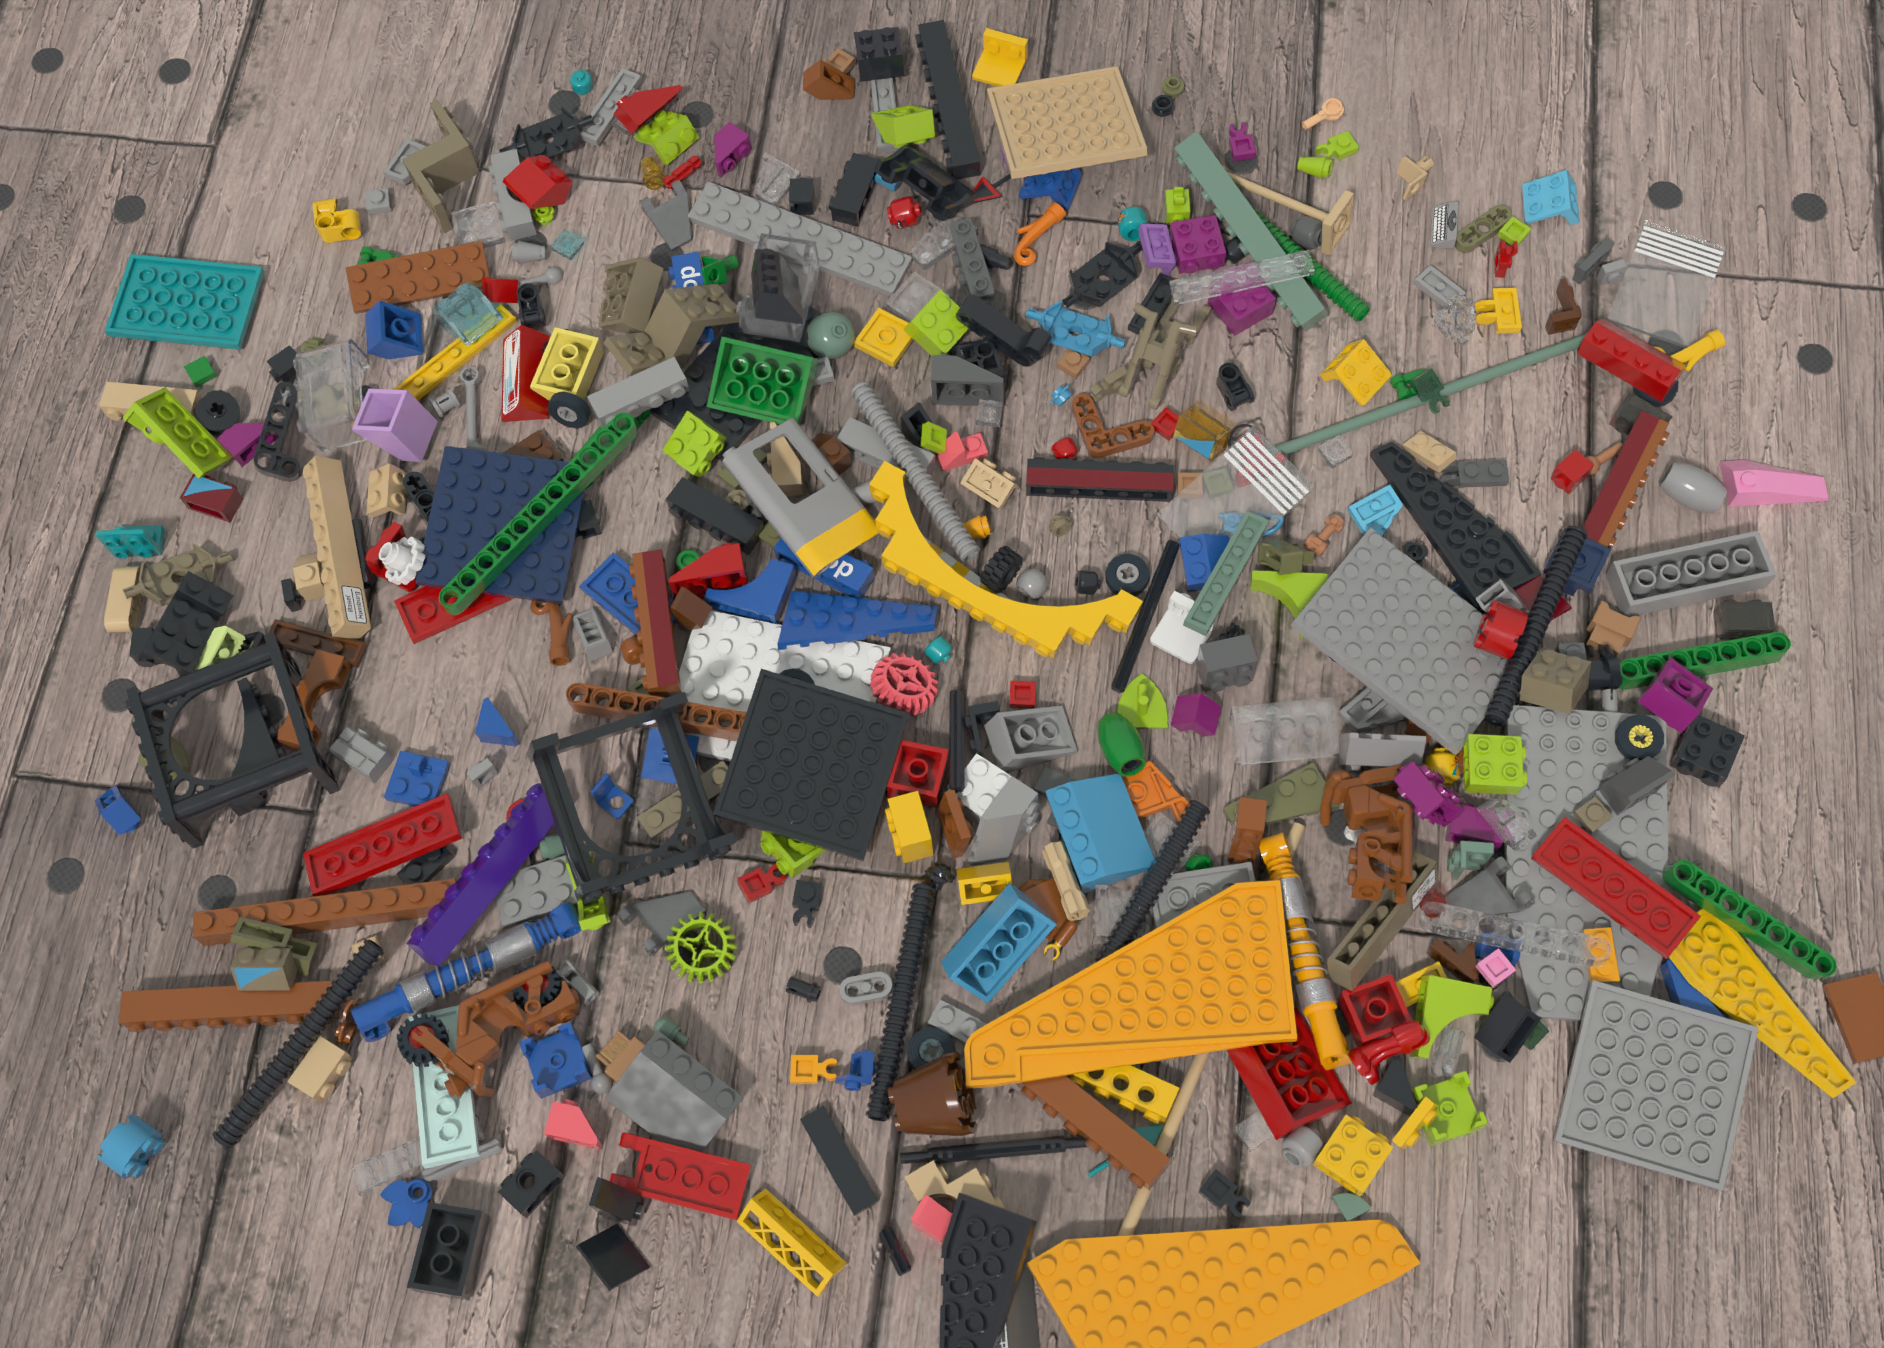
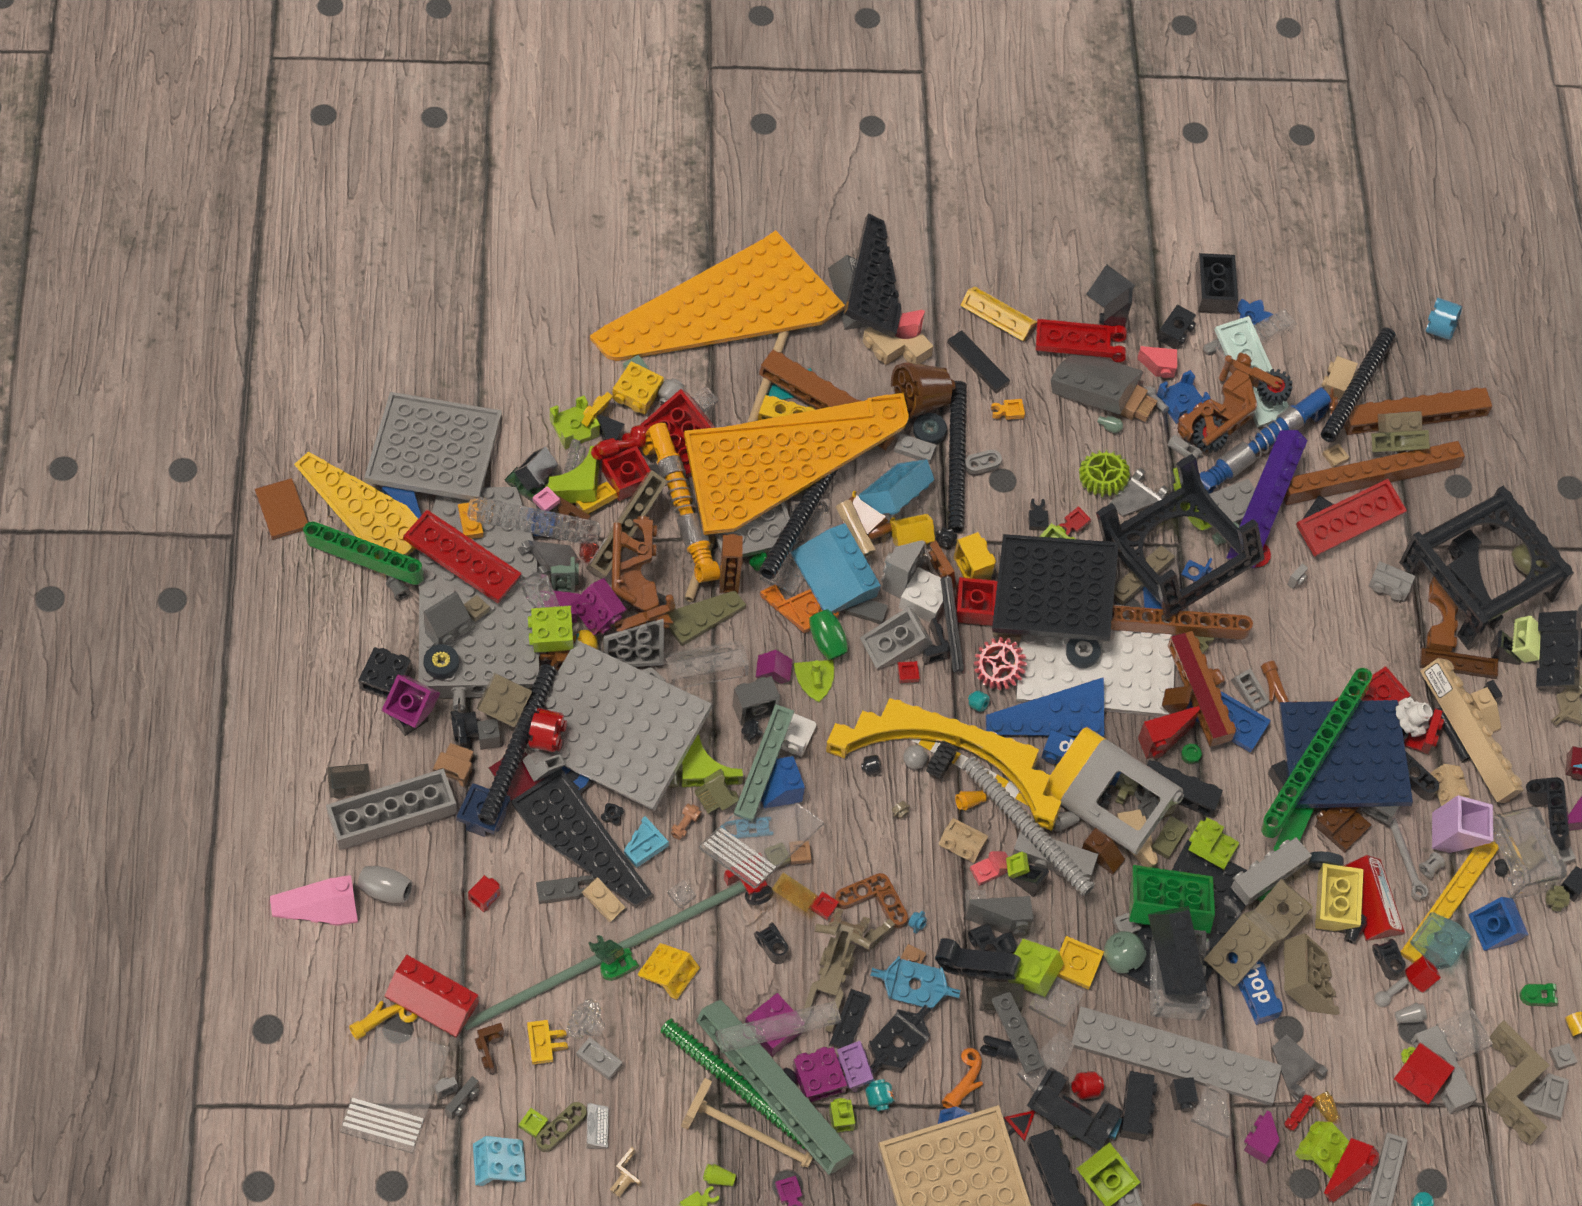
camera: 160 degrees right, 5 degrees down
(118, 811) = (1554, 526): blue slope -> none
(416, 779) = (1344, 571): blue hinge -> none
(417, 276) = (1497, 978): dark orange plate -> none
(492, 727) = (1299, 609): blue slope -> none
(563, 128) = (1443, 1122): black plate -> none
(567, 244) = (1378, 1025): clear light blue plate -> none
(716, 269) = (1238, 1010): green bracket -> none
(759, 599) = (1126, 723): blue arch -> none
(804, 989) = (1027, 458): black pin -> none
(861, 1071) = (975, 406): blue bracket -> none
(897, 1255) = (932, 316): black piece -> none
(992, 1150) = (865, 377): black axle -> none
(1064, 449) = (907, 875): red piece -> none
(1099, 479) = (874, 849): brick -> none
(1126, 563) = (844, 783): black bush -> none
(1145, 616) = (820, 749): black axle -> none
(1220, 1191) = (722, 364): black plate -> none
(1307, 232) = (721, 1099): dark grey head -> none
(1503, 258) = (543, 1088): red plate -> none
(1604, 456) = (465, 909): nougat bar -> none
(1624, 479) = (445, 877): brick -> none
(1629, 410) = (425, 945): clear smoke brick -> none
(1711, 655) = (392, 738): green beam -> none

